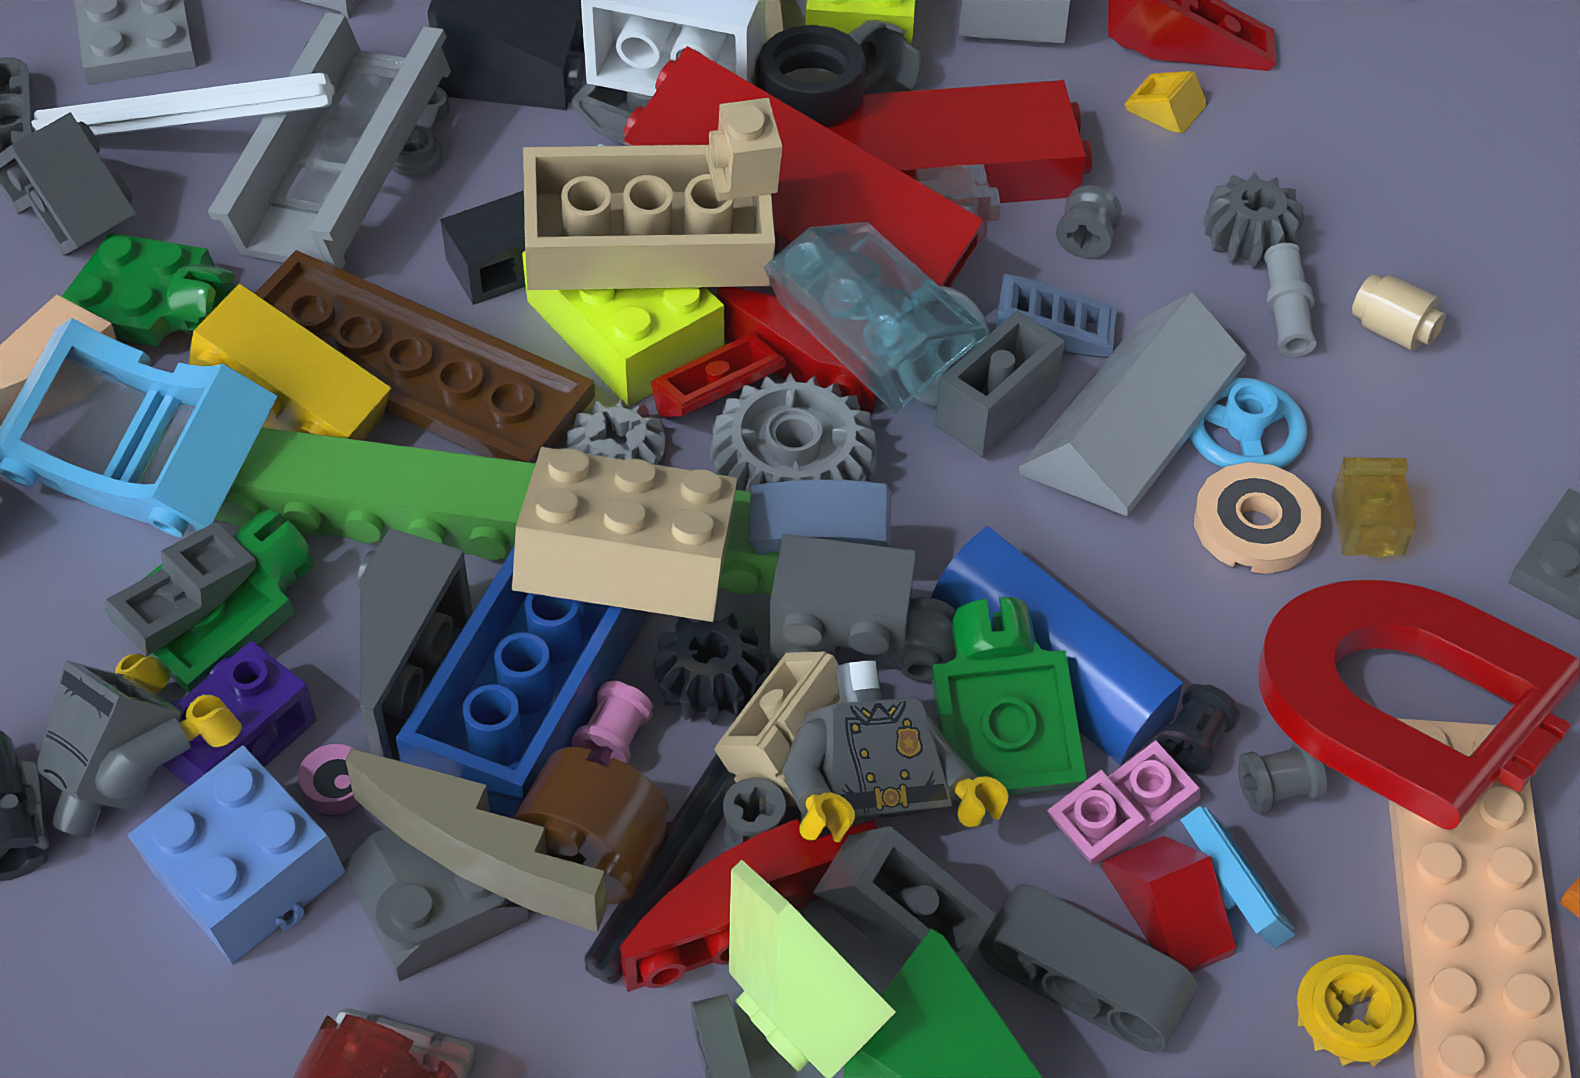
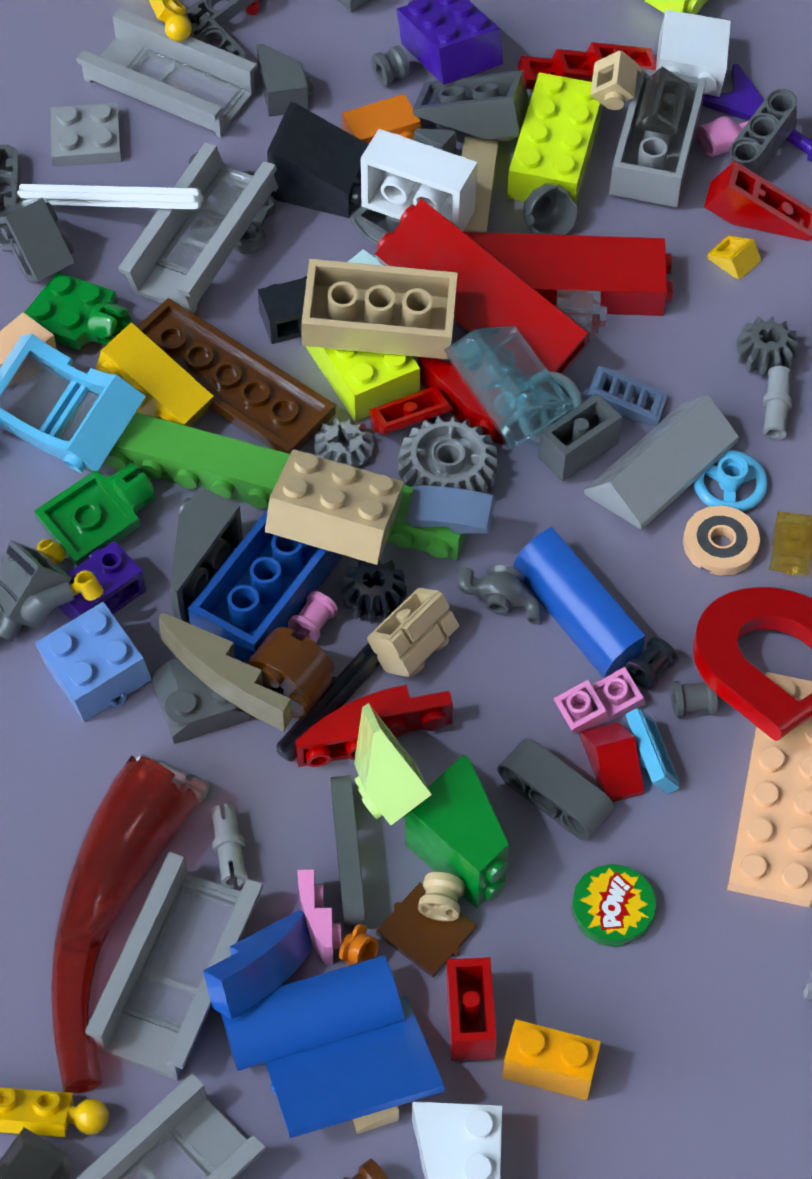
camera: 10 degrees right, 5 degrees up
(193, 582) = (86, 500): dark grey slope -> none
(326, 780) = (146, 626): bright pink tile -> none
(743, 809) = (378, 675): dark grey bush -> none
(744, 150) = (440, 278): tan brick -> none
(814, 48) = (502, 238): black tyre -> none
(838, 597) = (453, 559): dark grey brick -> none
(879, 762) = (457, 658): dark grey torso -> none
(900, 895) = (452, 731): dark grey brick -> none
(1008, 701) = (539, 636): green plate -> none
(1089, 221) = (662, 335): dark grey wheel -> none
(1353, 980) = (704, 817): yellow gear -> none

